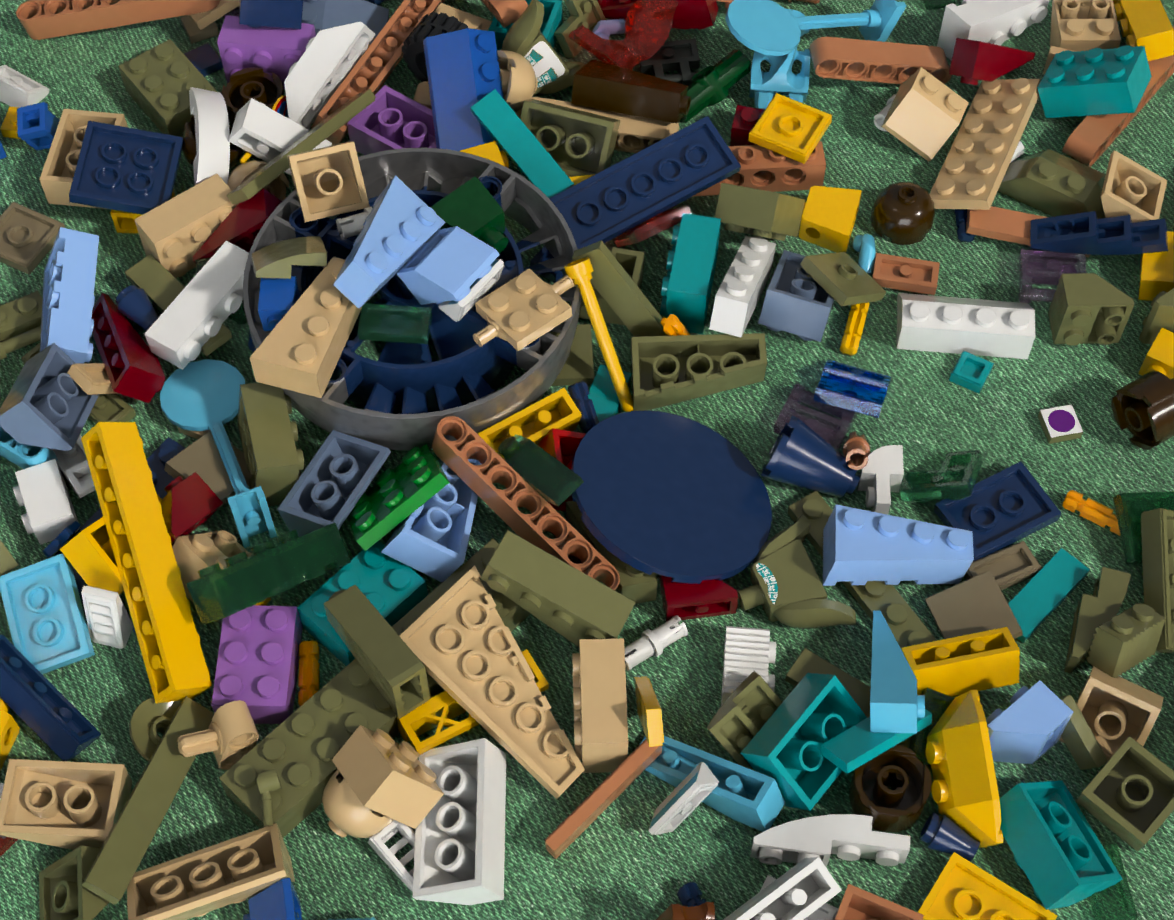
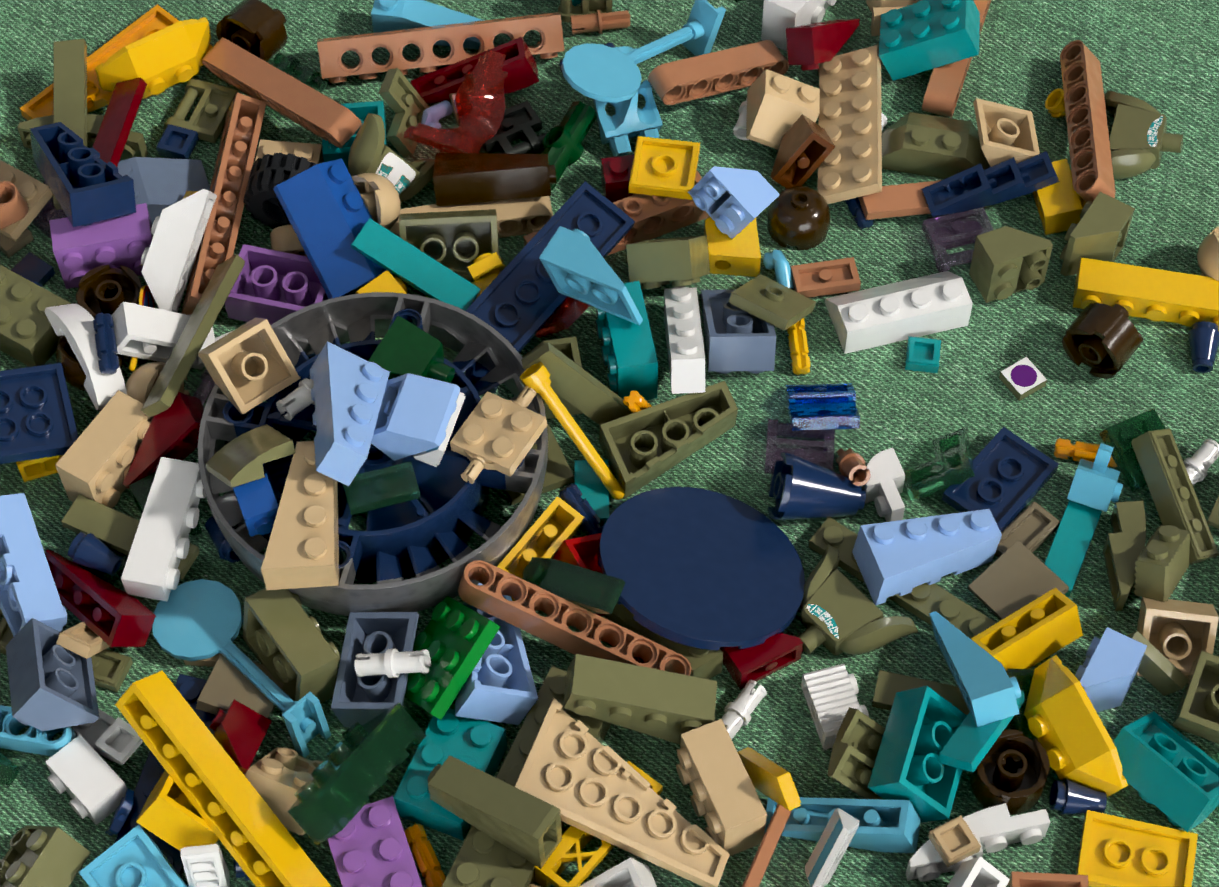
camera: 20 degrees left, 0 degrees up
(223, 130) = (106, 343): none -> dark blue axle
(344, 485) = (392, 663): none -> white pin
(587, 165) = (486, 265): none -> yellow plate
(667, 194) = (585, 275): none -> medium azure slope
(805, 834) = (954, 841): none -> tan tile
(839, 170) = (733, 197): none -> light blue slope
(927, 154) = (801, 152): none -> reddish brown slope
(1090, 541) = (1095, 482): none -> medium azure brick

